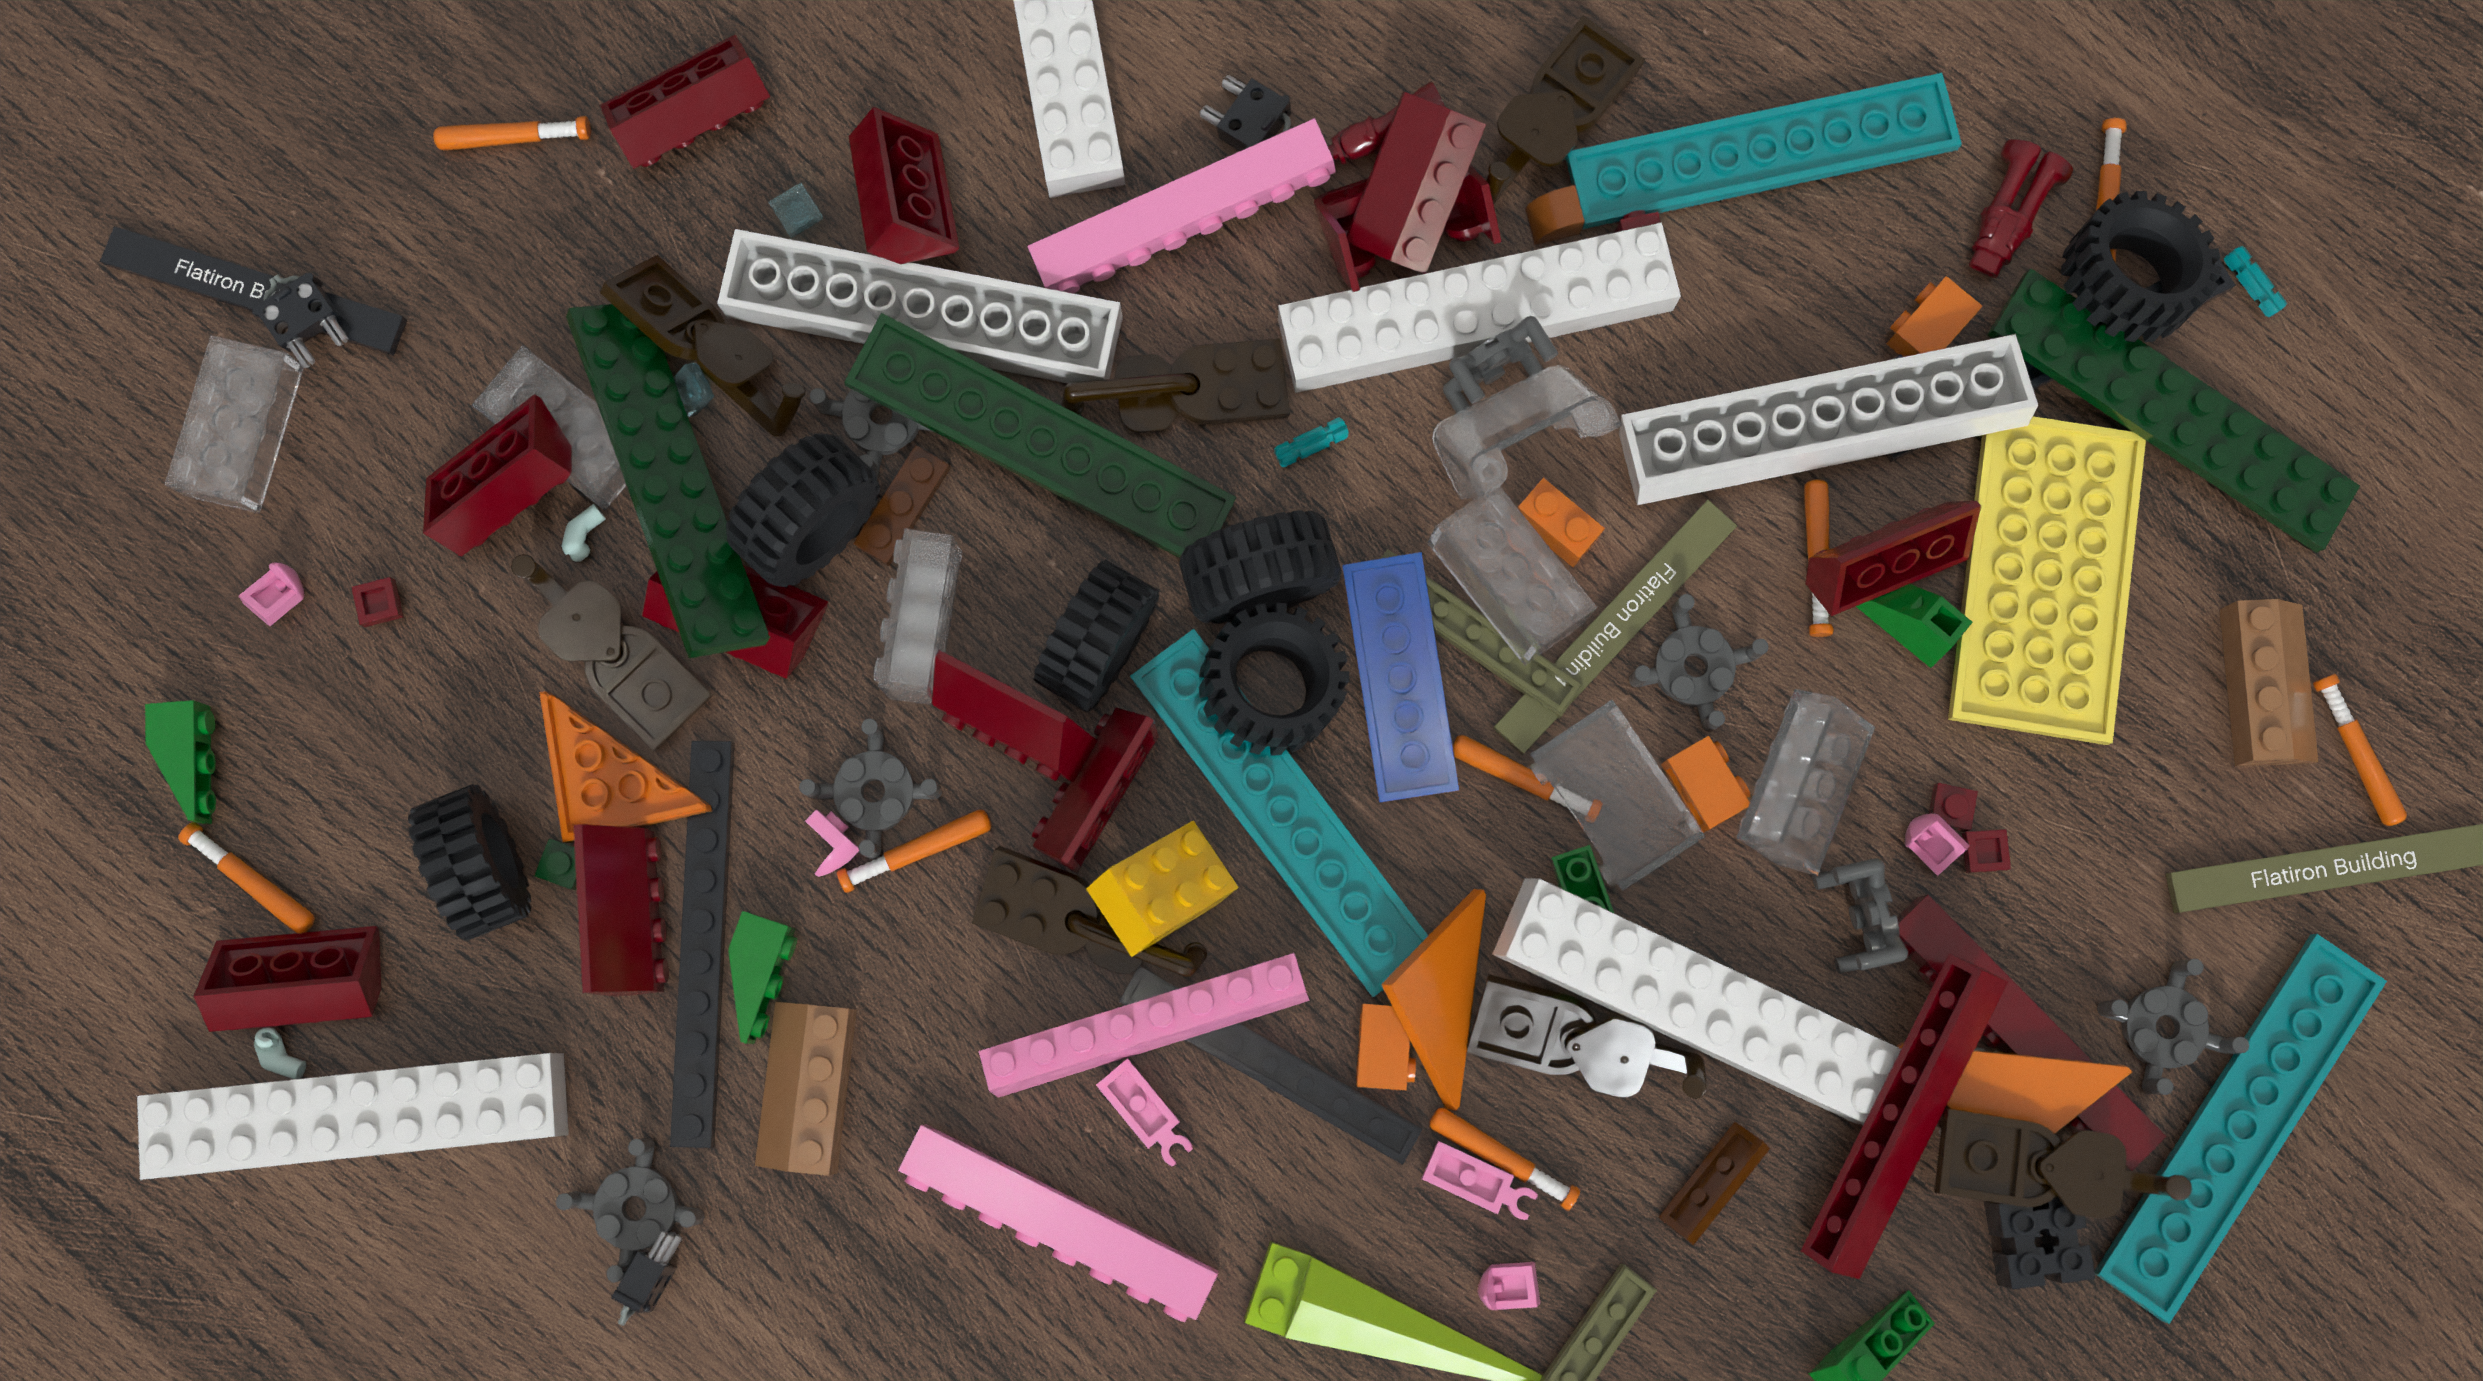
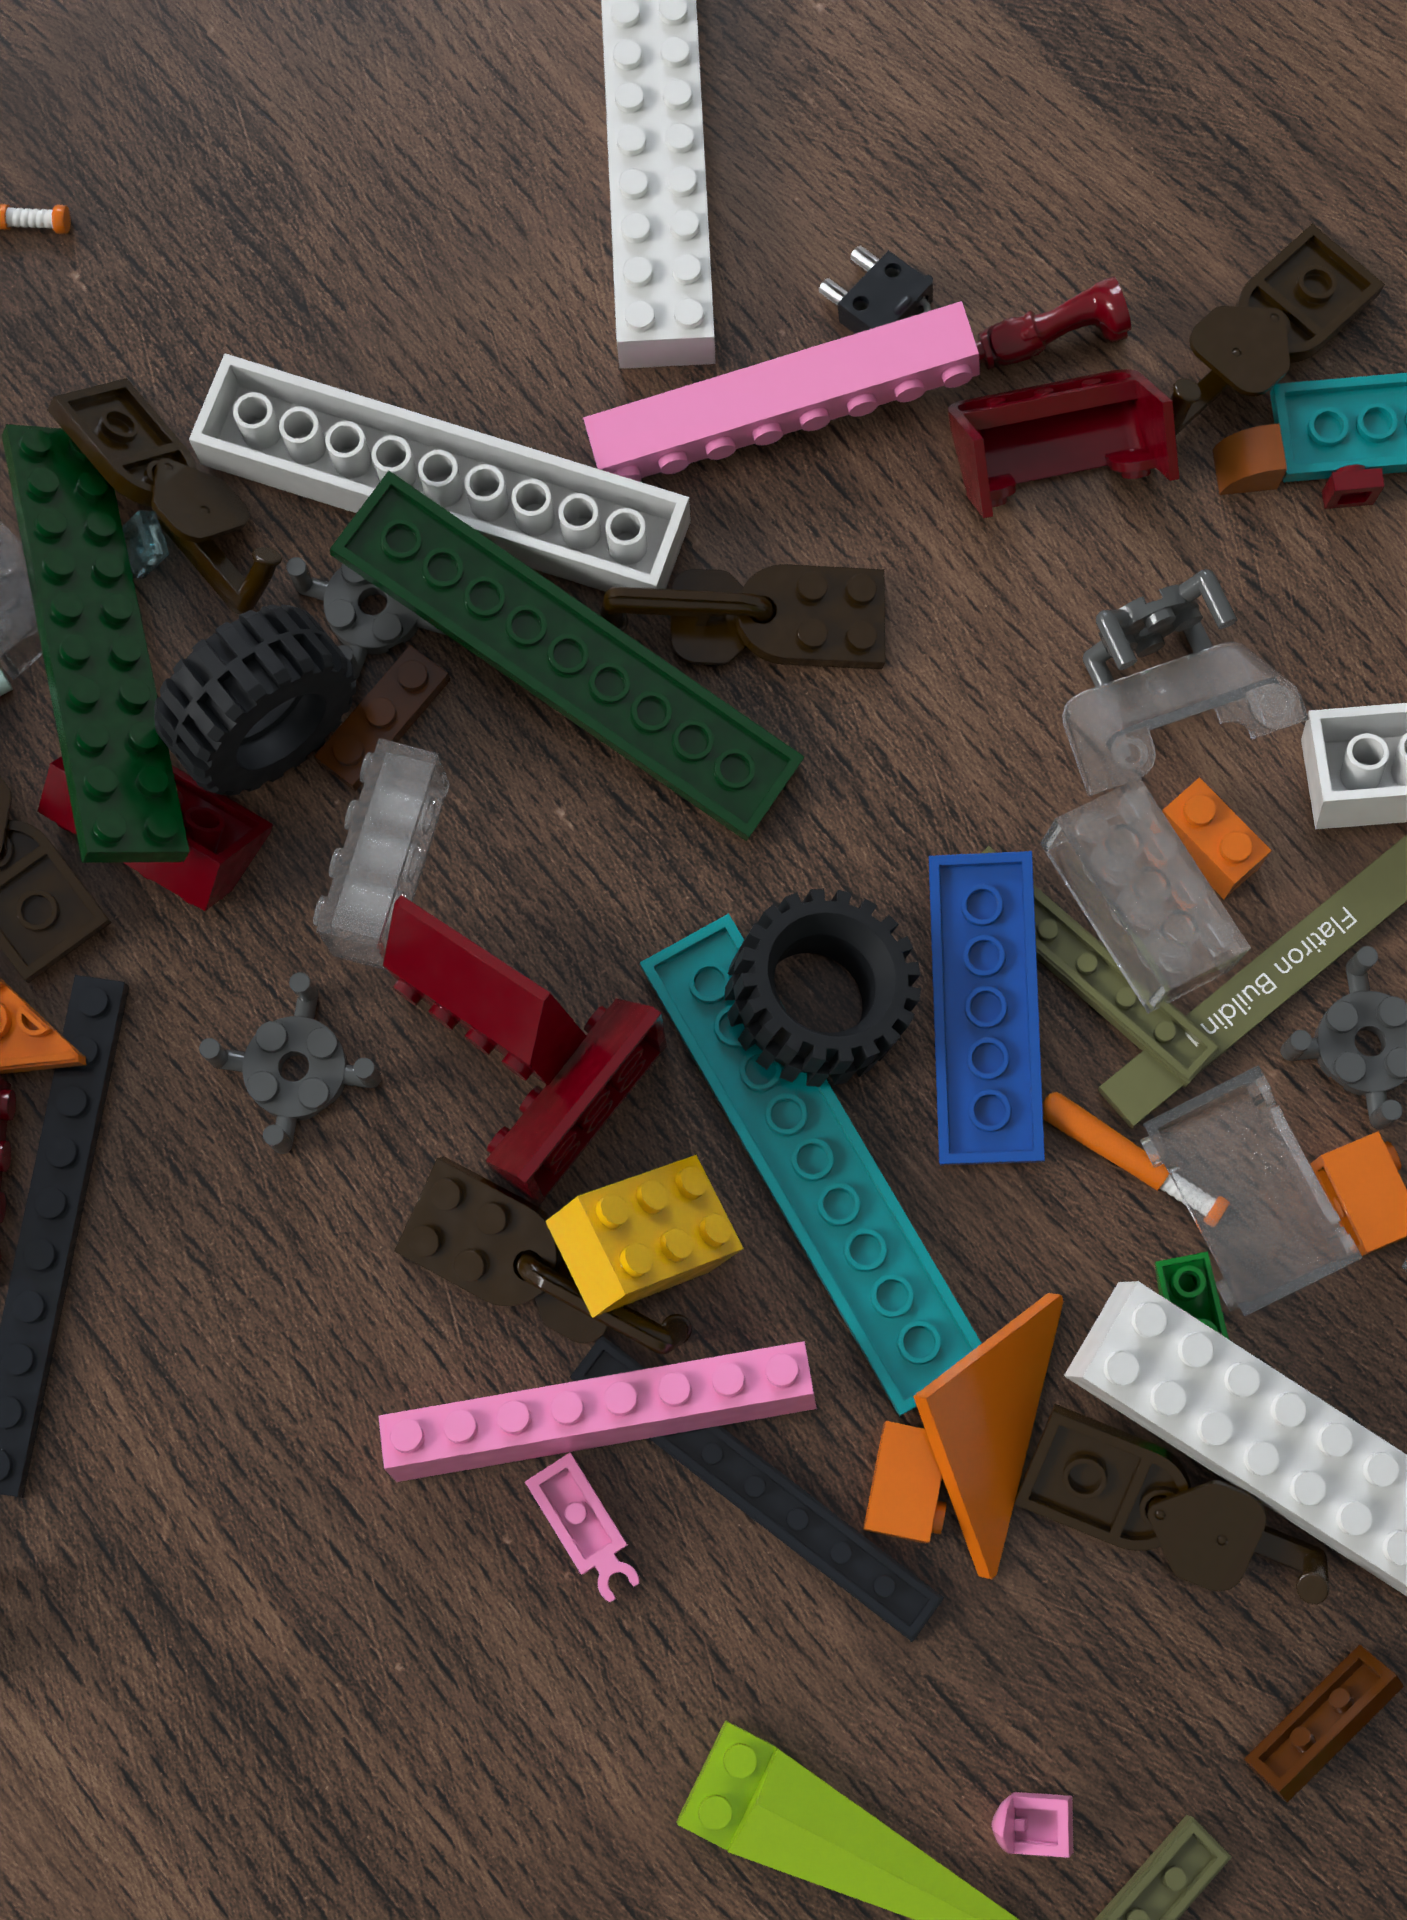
camera: 10 degrees right, 5 degrees down
(684, 102) = (188, 203): dark red slope -> none
(755, 965) = (110, 1270): green slope -> none
(795, 210) = (304, 345): clear light blue plate -> none
(806, 1088) = (151, 1436): medium nougat slope -> none
(832, 830) = (234, 1109): bright pink plate -> none
(902, 189) = (437, 331): dark red slope -> none
(935, 841) = (352, 1144): orange piece -> none
(1059, 1222) = (452, 1656): bright pink brick -> none
(1096, 635) = (602, 902): black tyre -> none
(1260, 562) = (823, 832): black tyre -> none
(1311, 442) = (907, 701): teal axle -> none
(1414, 182) = (1078, 393): dark red slope -> none
(1461, 307) = (1099, 558): white brick -> none
(1474, 1180) = (1004, 1675): bright pink plate -> none
(1489, 1149) = (1032, 1639): orange piece -> none

